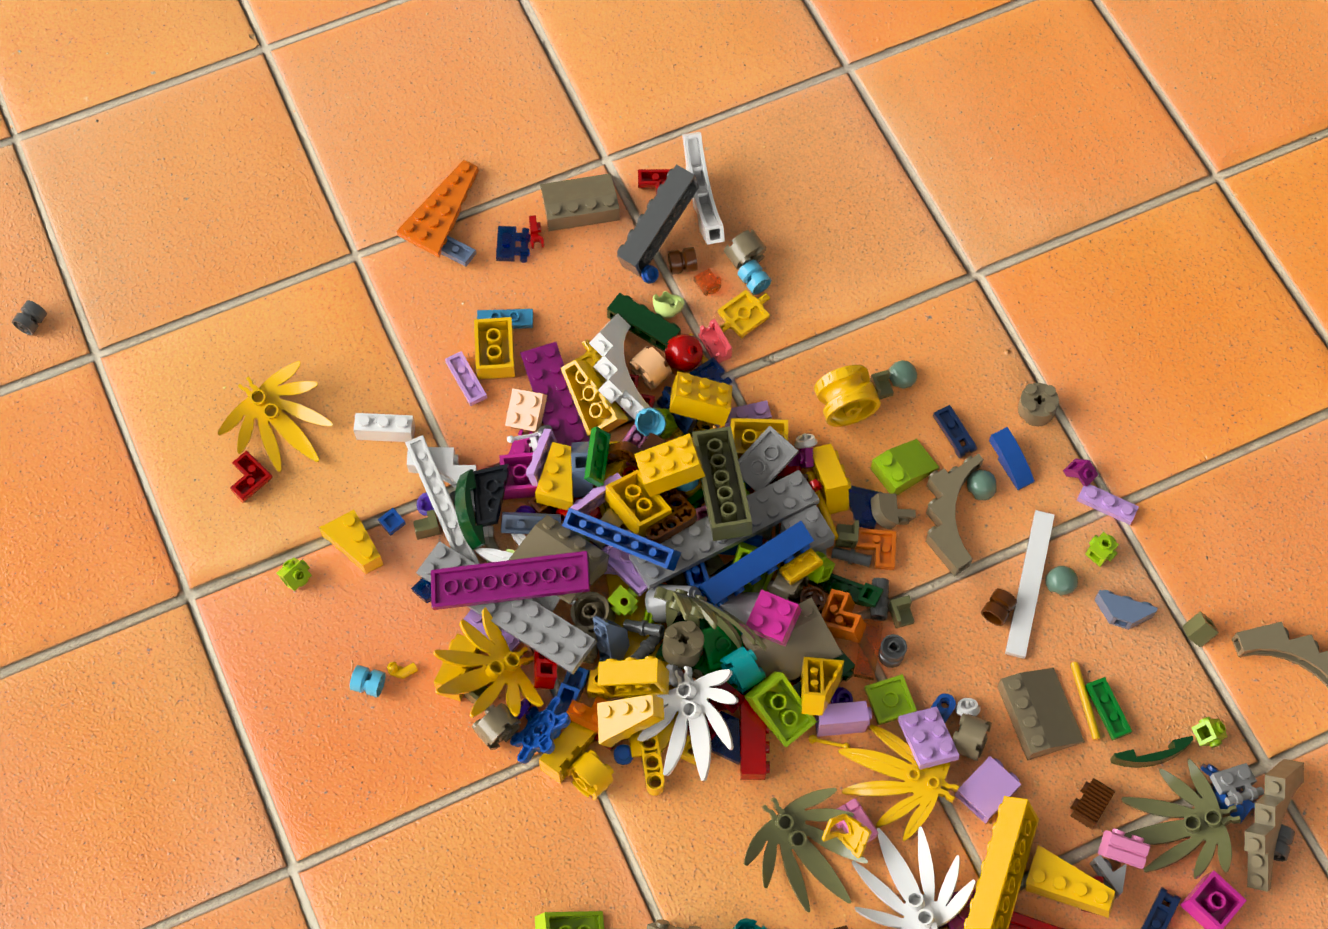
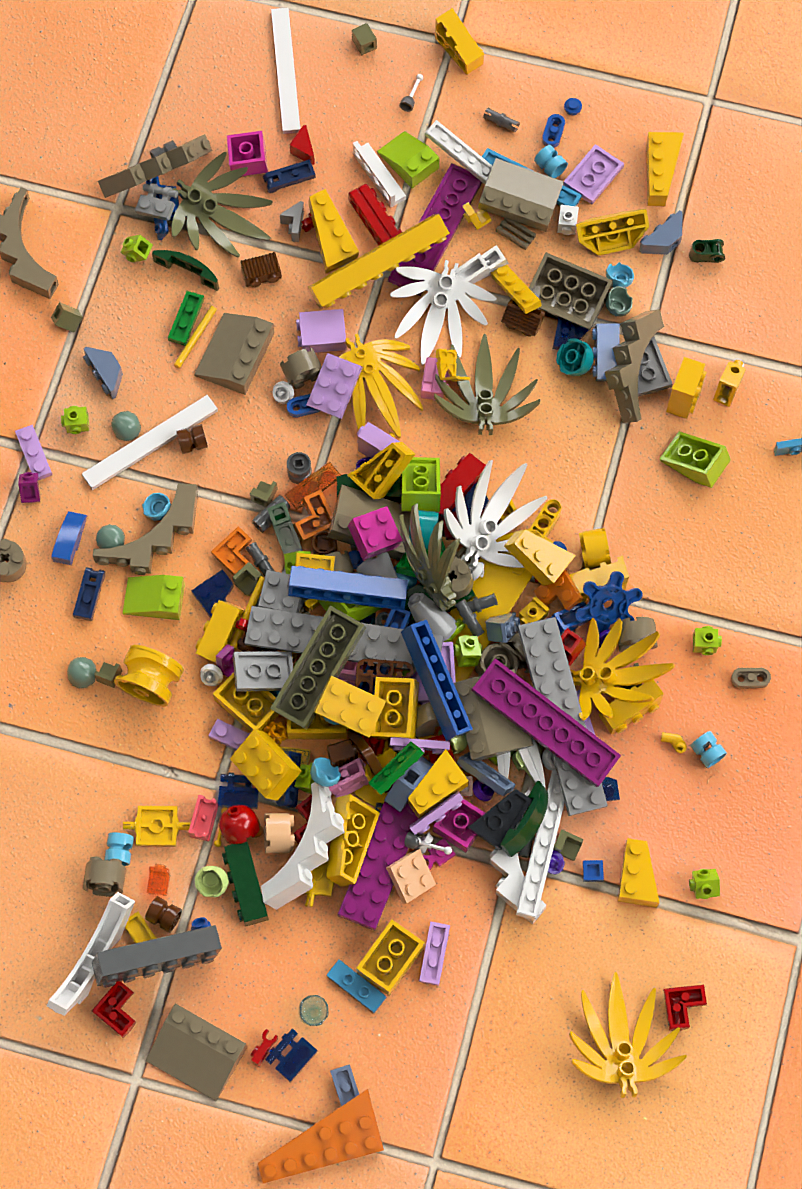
camera: 140 degrees left, 5 degrees up
(375, 771) = (750, 678): none -> dark tan plate
(384, 427) = (538, 959): white brick -> none
(436, 770) = (706, 640): none -> lime brick
(520, 277) = (313, 1010): none -> clear light blue hair
(633, 677) = (511, 581): yellow brick -> none
(685, 240) = (139, 929): none -> yellow tile
(886, 512) = (203, 568): dark tan brick -> none
(890, 699) = (331, 440): lime plate -> none
(971, 532) = (156, 506): none -> medium azure hair
(1124, 849) = (271, 225): bright pink brick -> none

